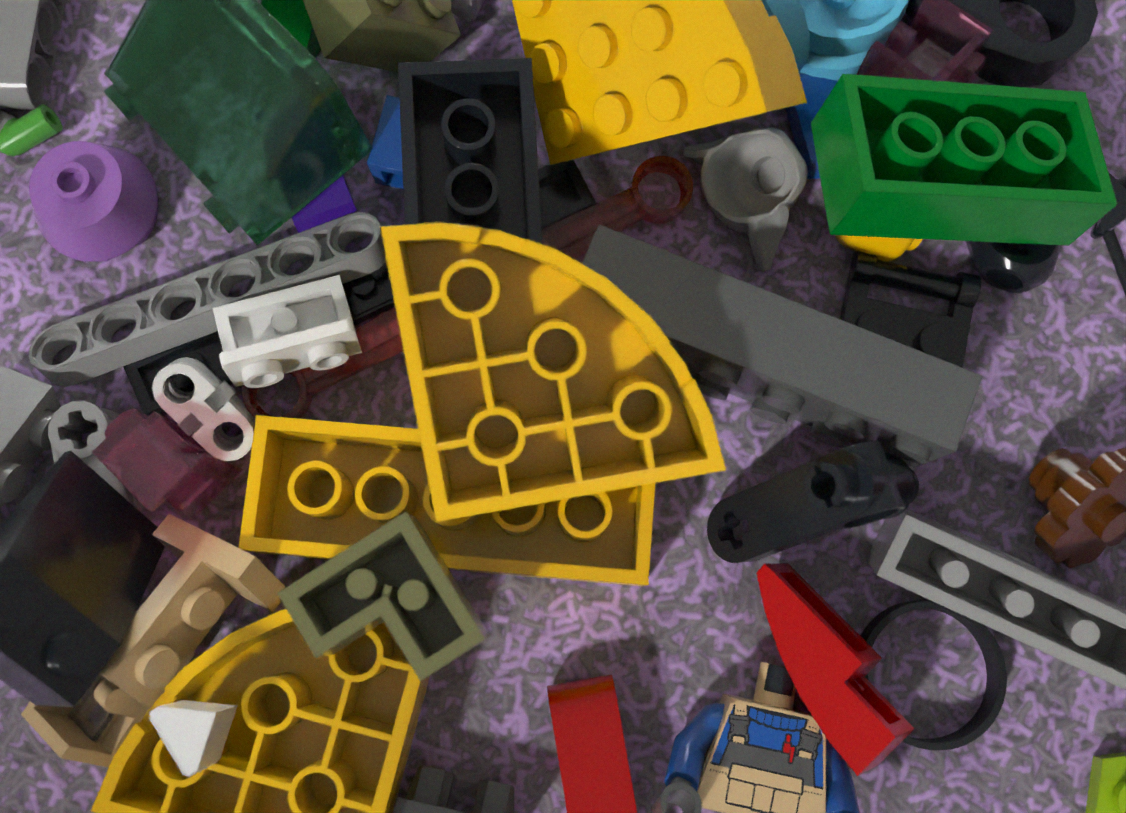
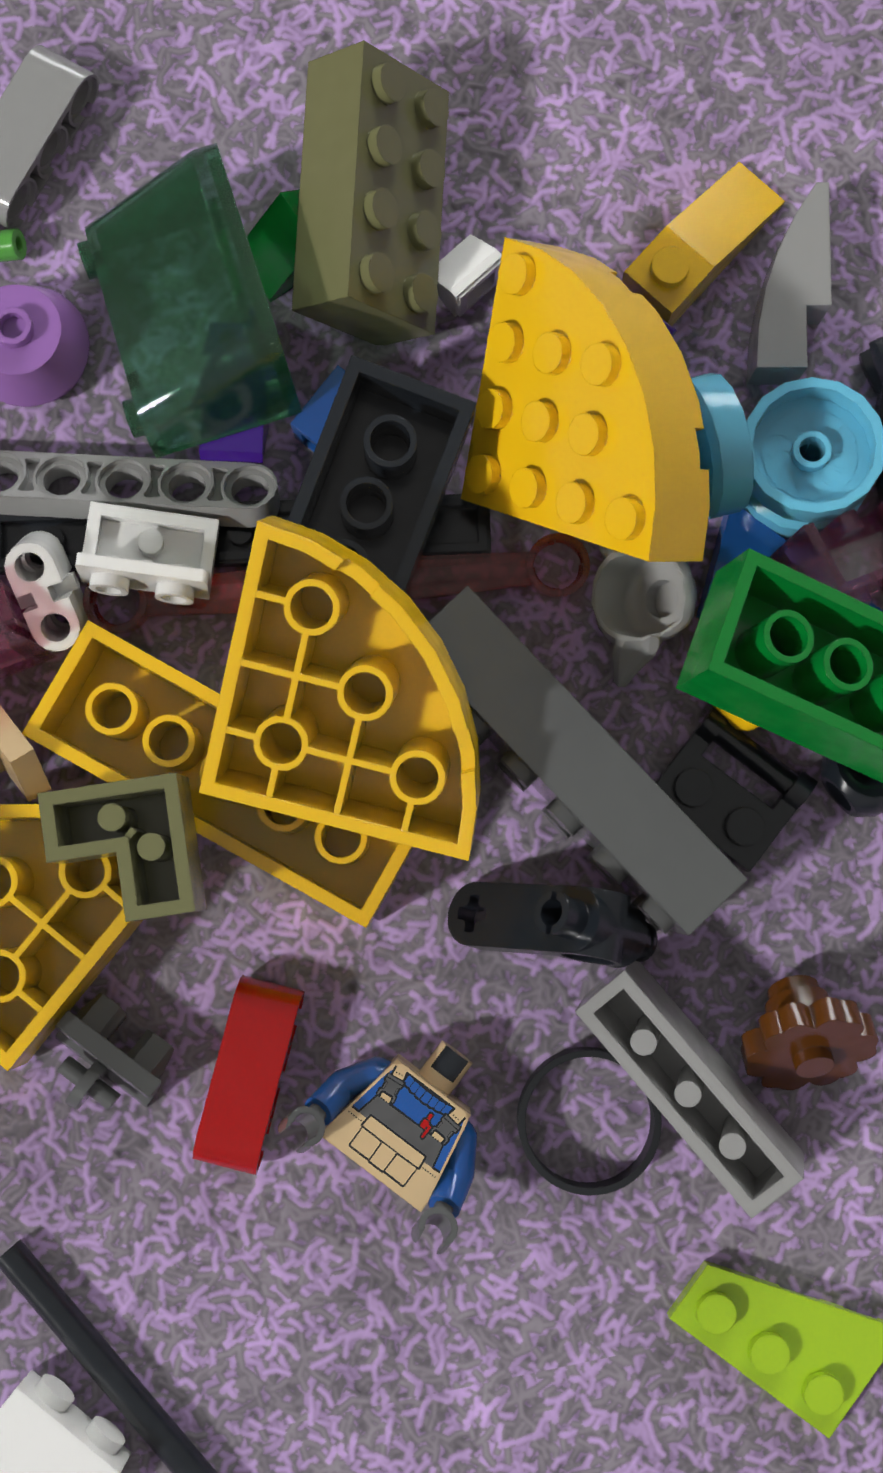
camera: 25 degrees right, 5 degrees up
(830, 669) = (497, 1072): red slope -> none

